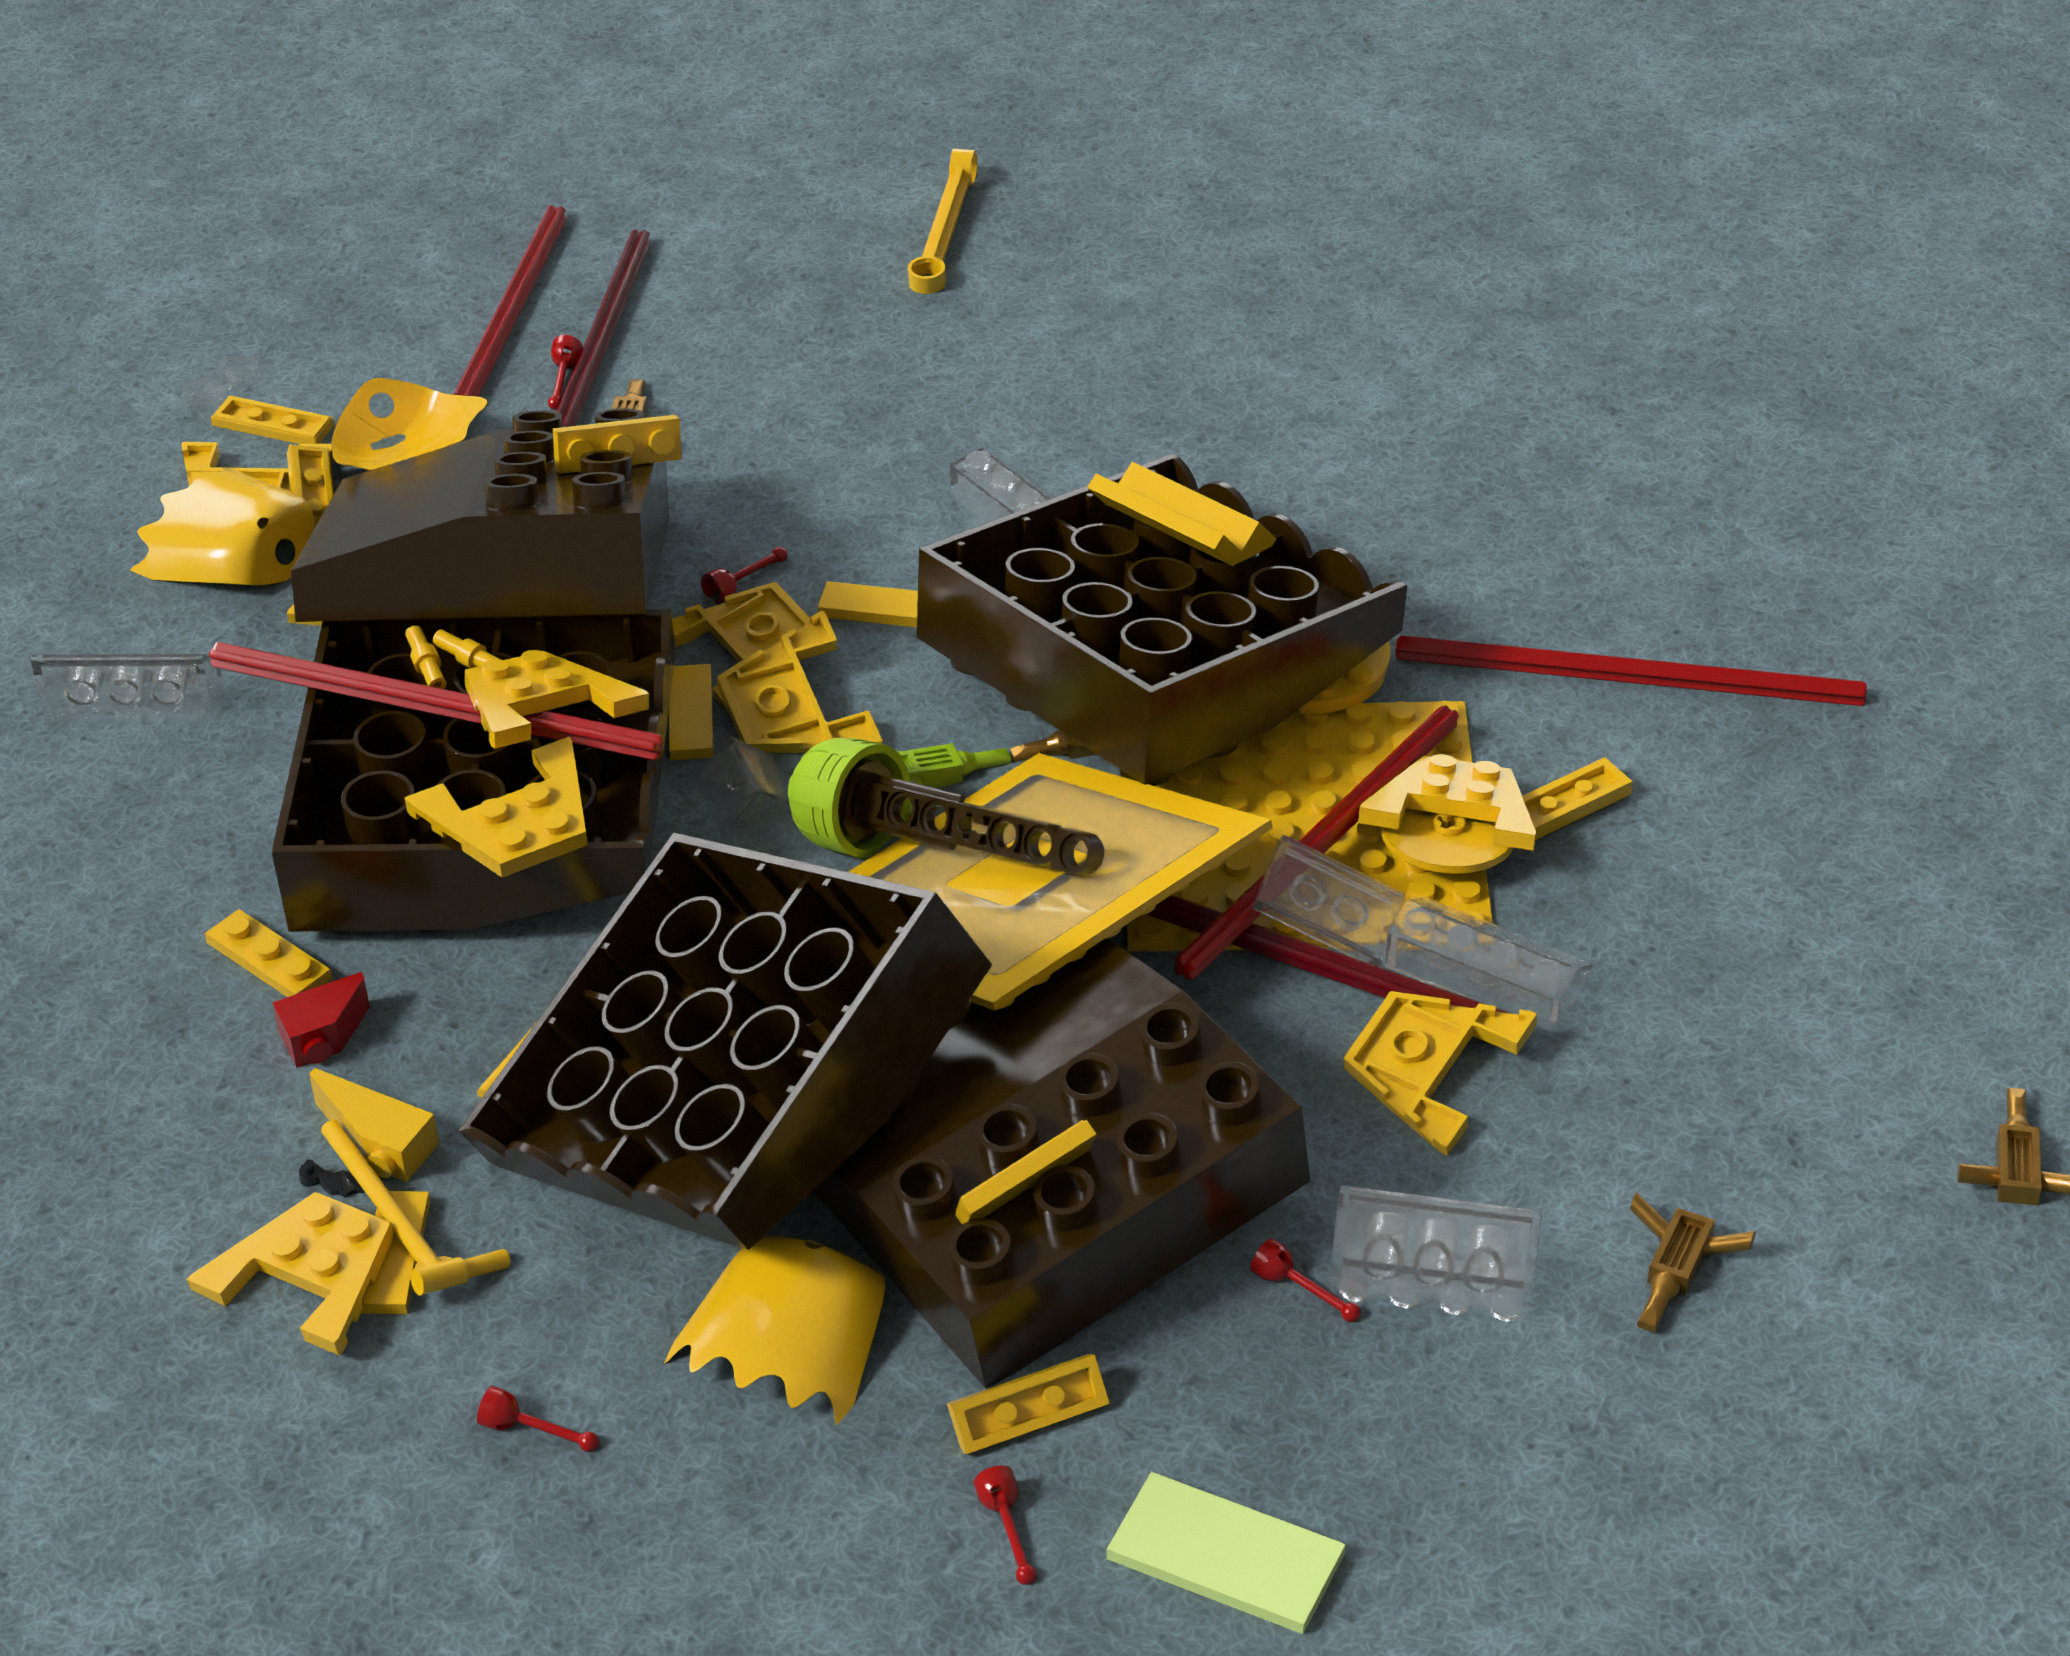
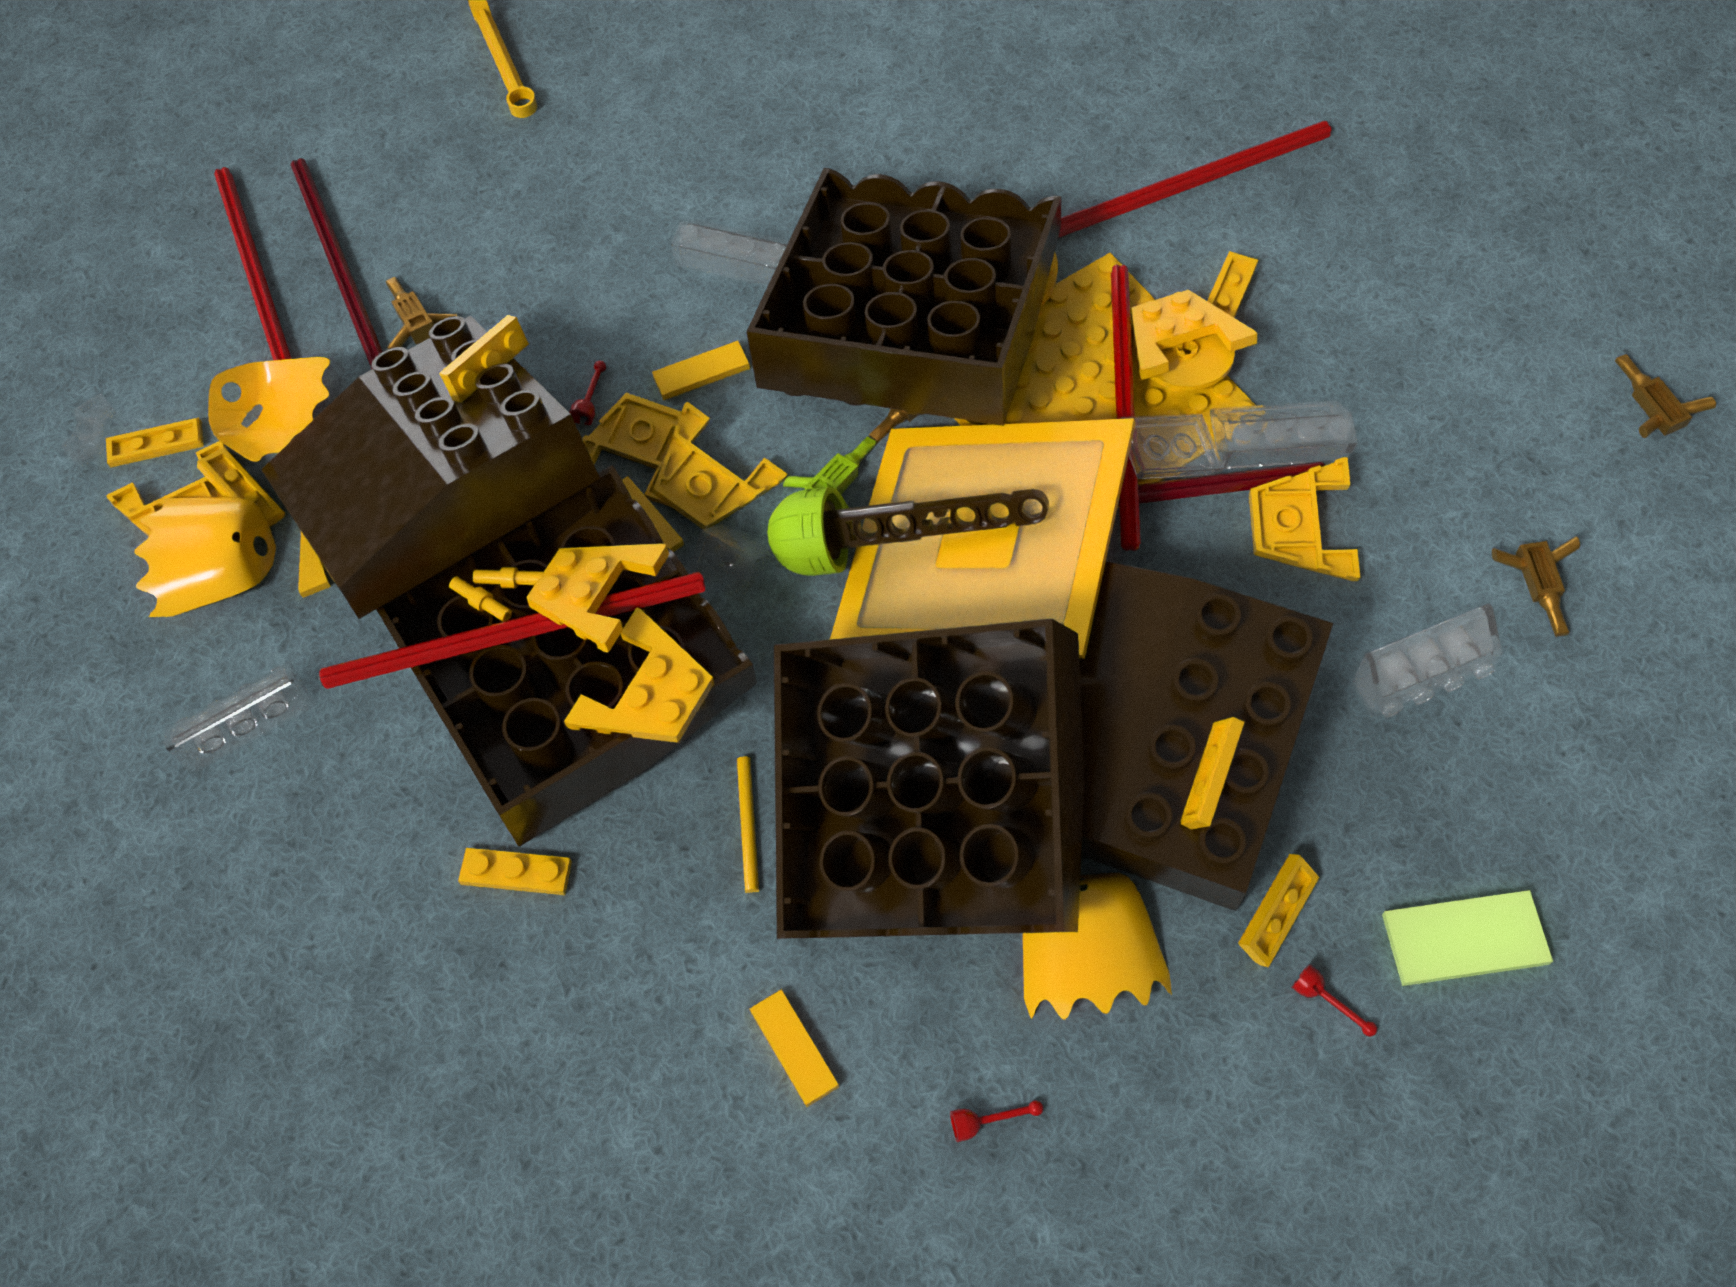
camera: 30 degrees left, 20 degrees up
(312, 1246) = (751, 1079): yellow wing -> none
(321, 1019) = (599, 904): red slope -> none
(333, 1183) = (713, 1016): black piece -> none
(386, 1131) = (711, 963): yellow slope -> none
(430, 1271) = (841, 1050): yellow bar -> none
(564, 361) = (328, 287): red hinge -> none
(1184, 514) = (887, 215): yellow slope -> none
(1275, 1263) = (1334, 719): red hinge -> none

